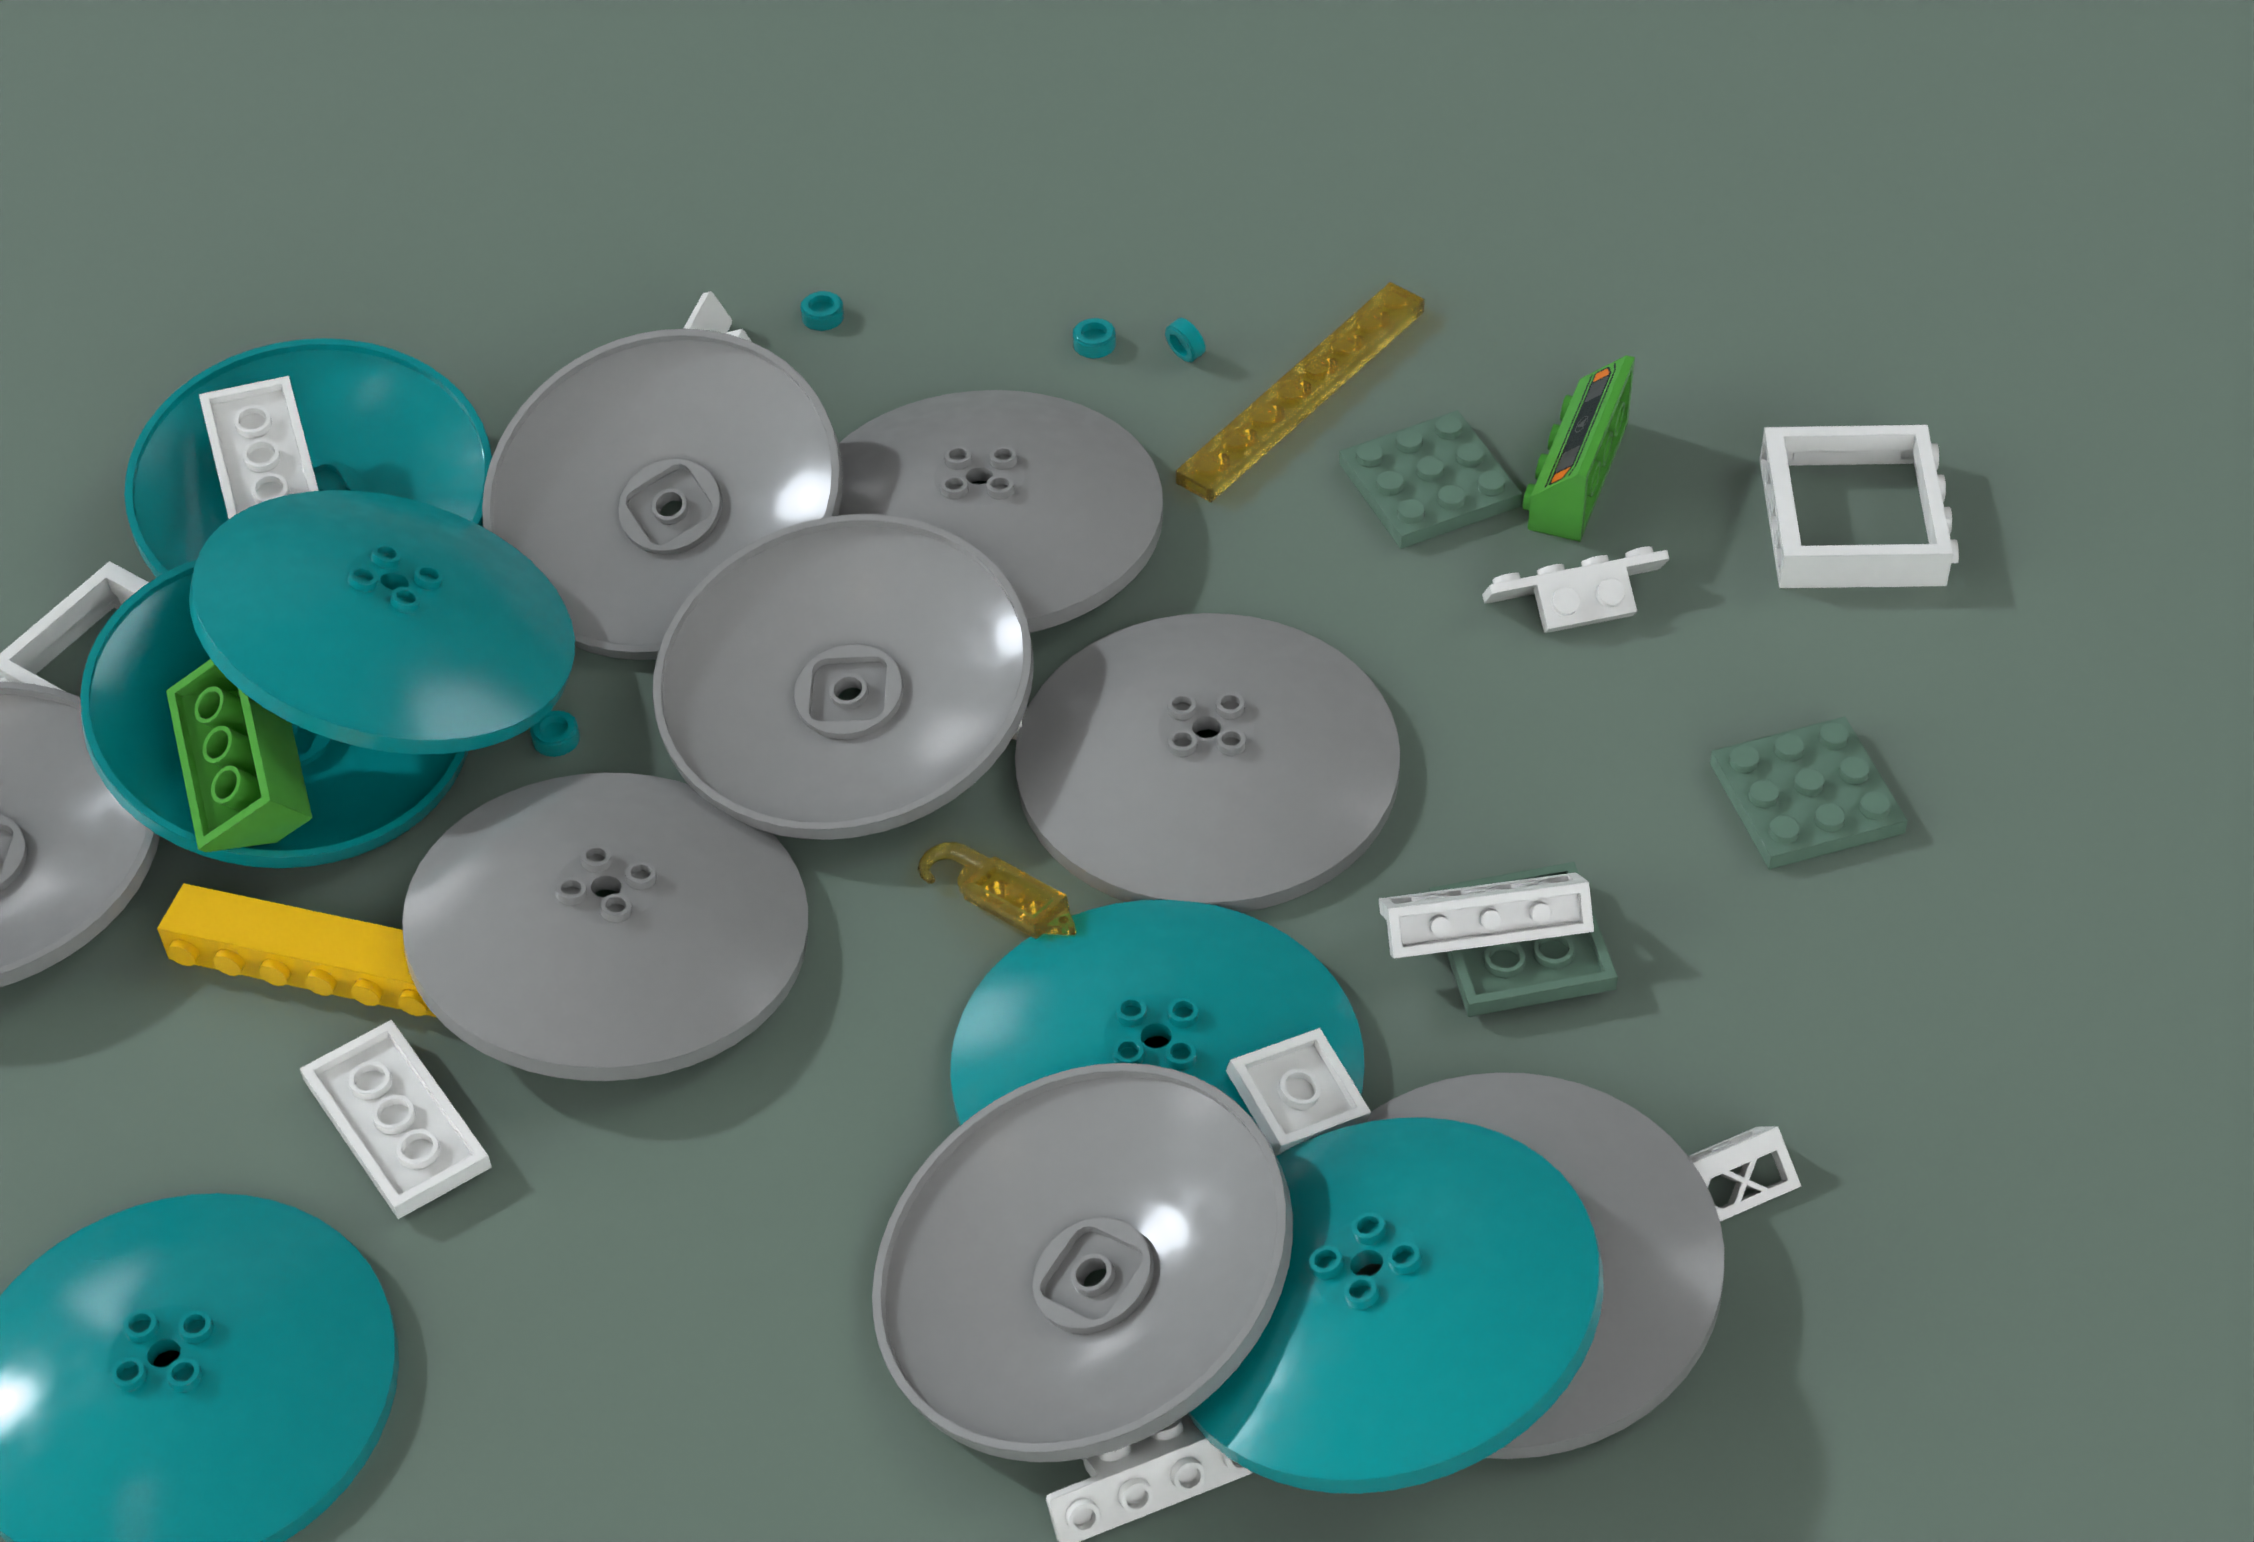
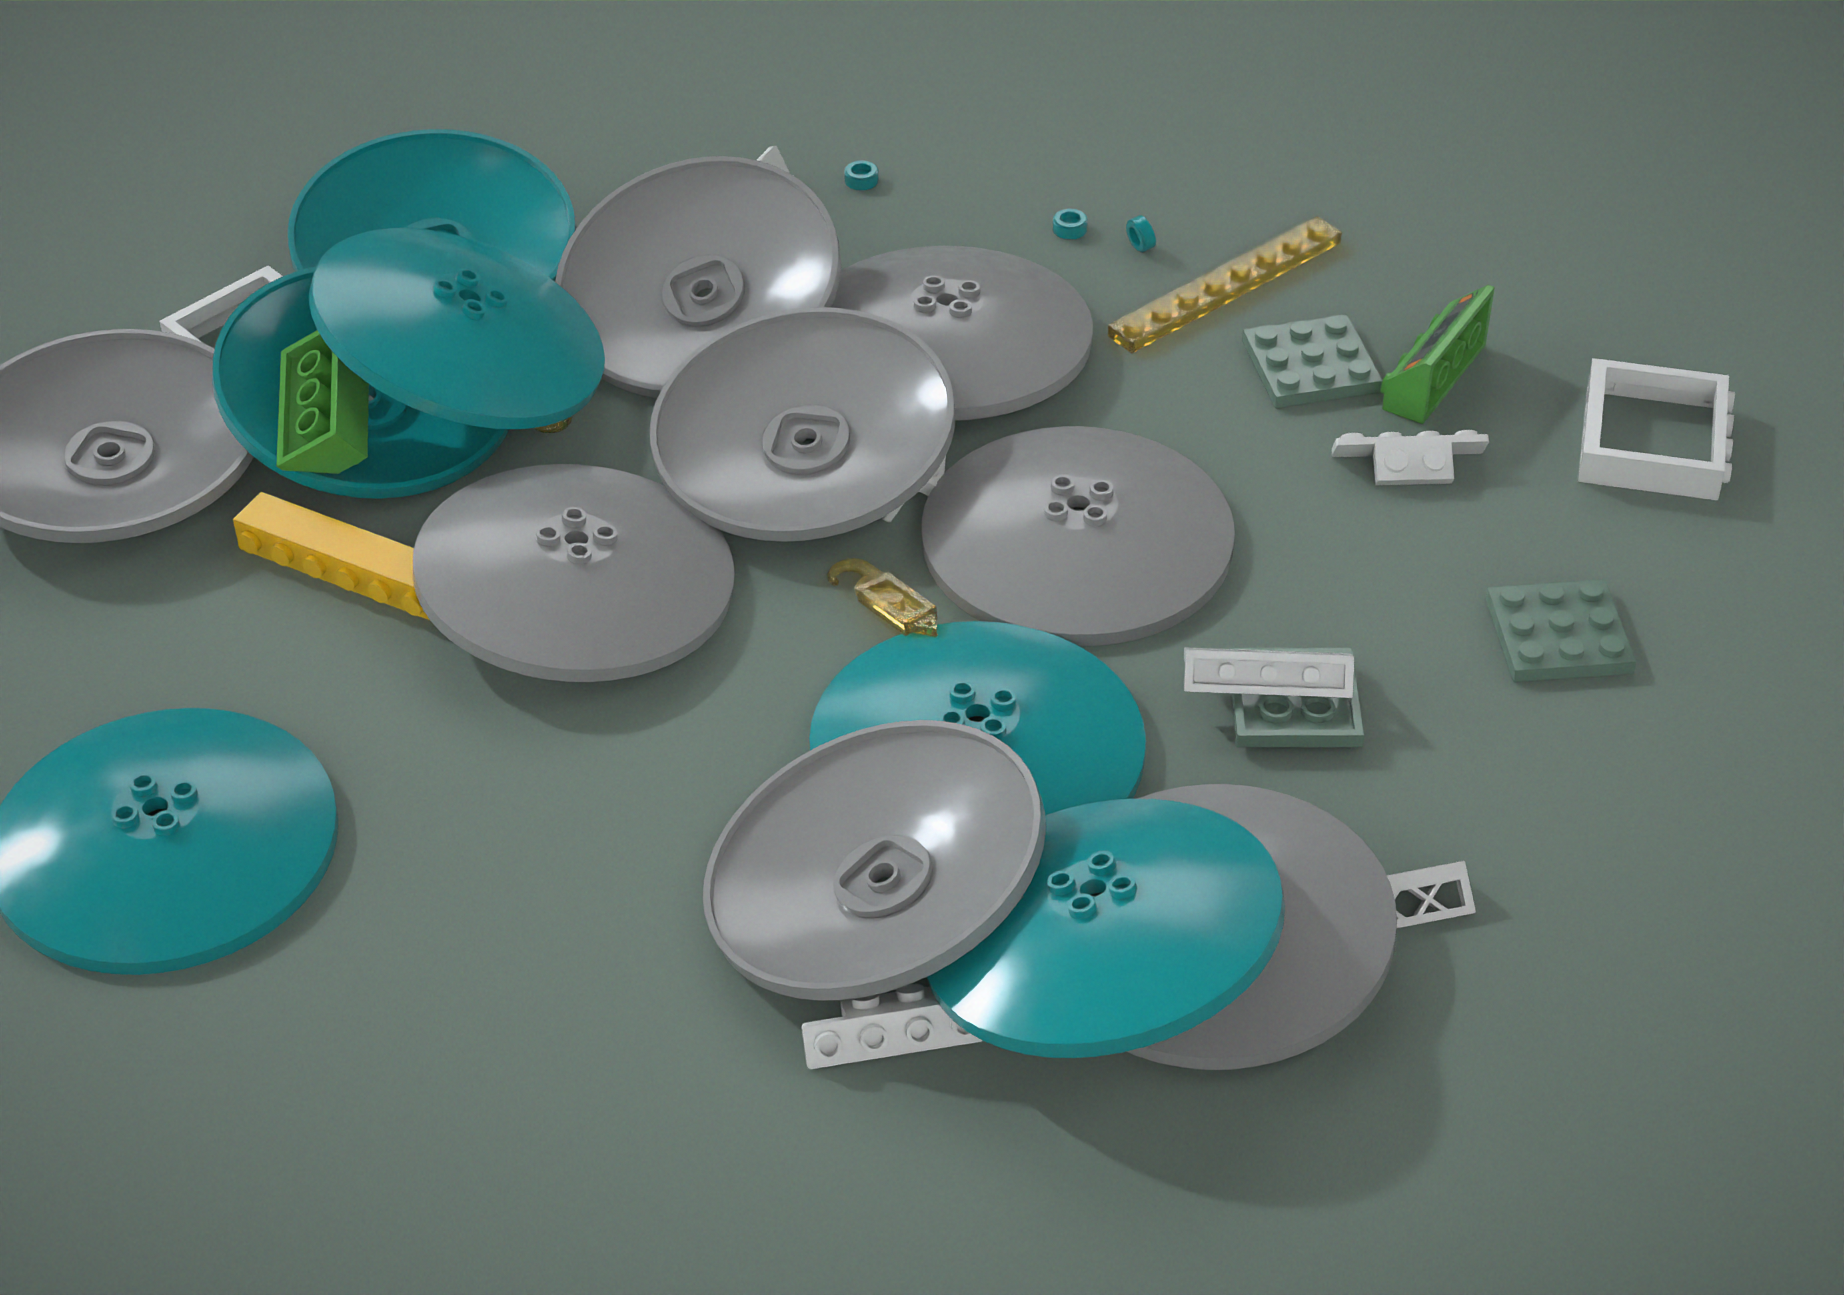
camera: 10 degrees right, 5 degrees down
(257, 443) = (397, 190): white plate -> none
(395, 1119) = (377, 682): white plate -> none
(555, 734) = (573, 437): teal tile -> none
(1297, 1090) = (1078, 768): white plate -> none

